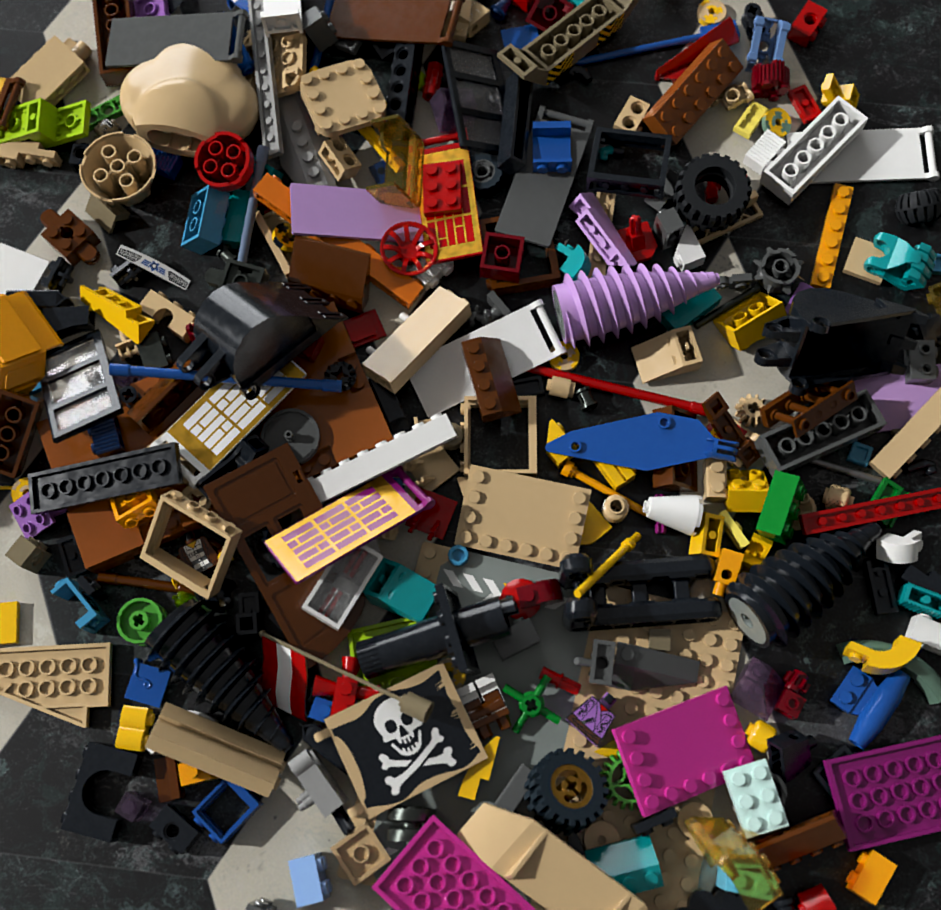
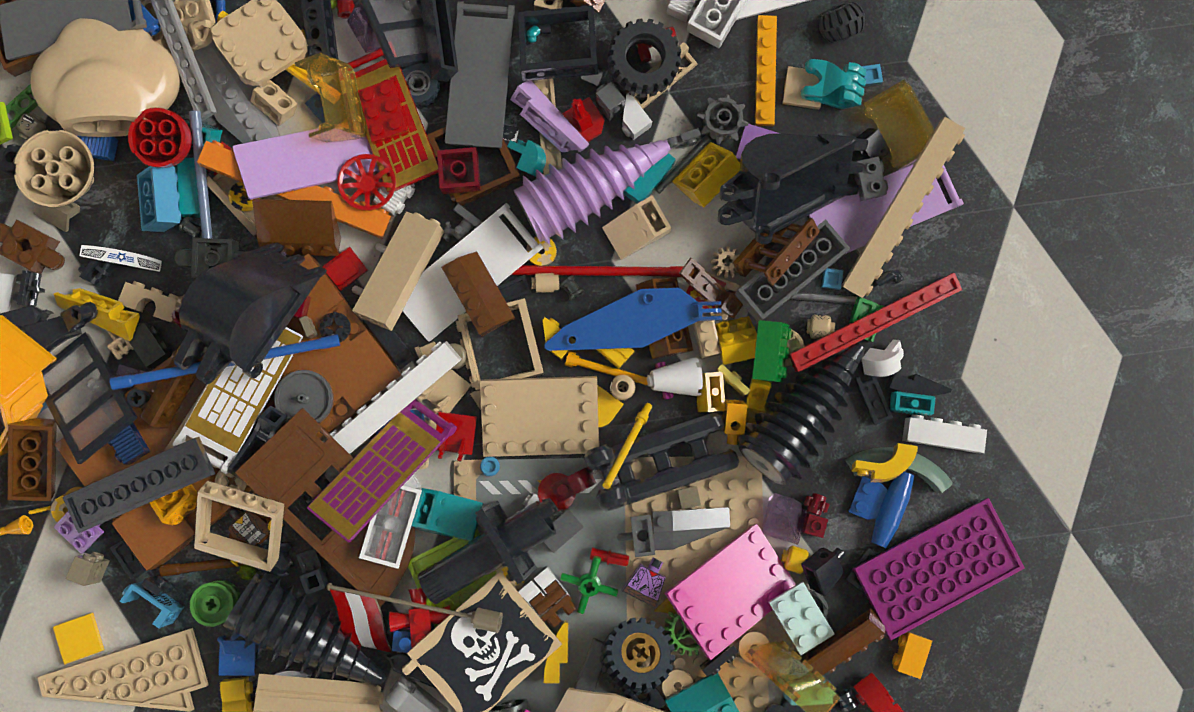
camera: 25 degrees left, 10 degrees up
(97, 308) = (78, 316): none -> black piece
(314, 368) = (308, 327): none -> dark tan tile
(551, 146) = (479, 44): blue panel -> none

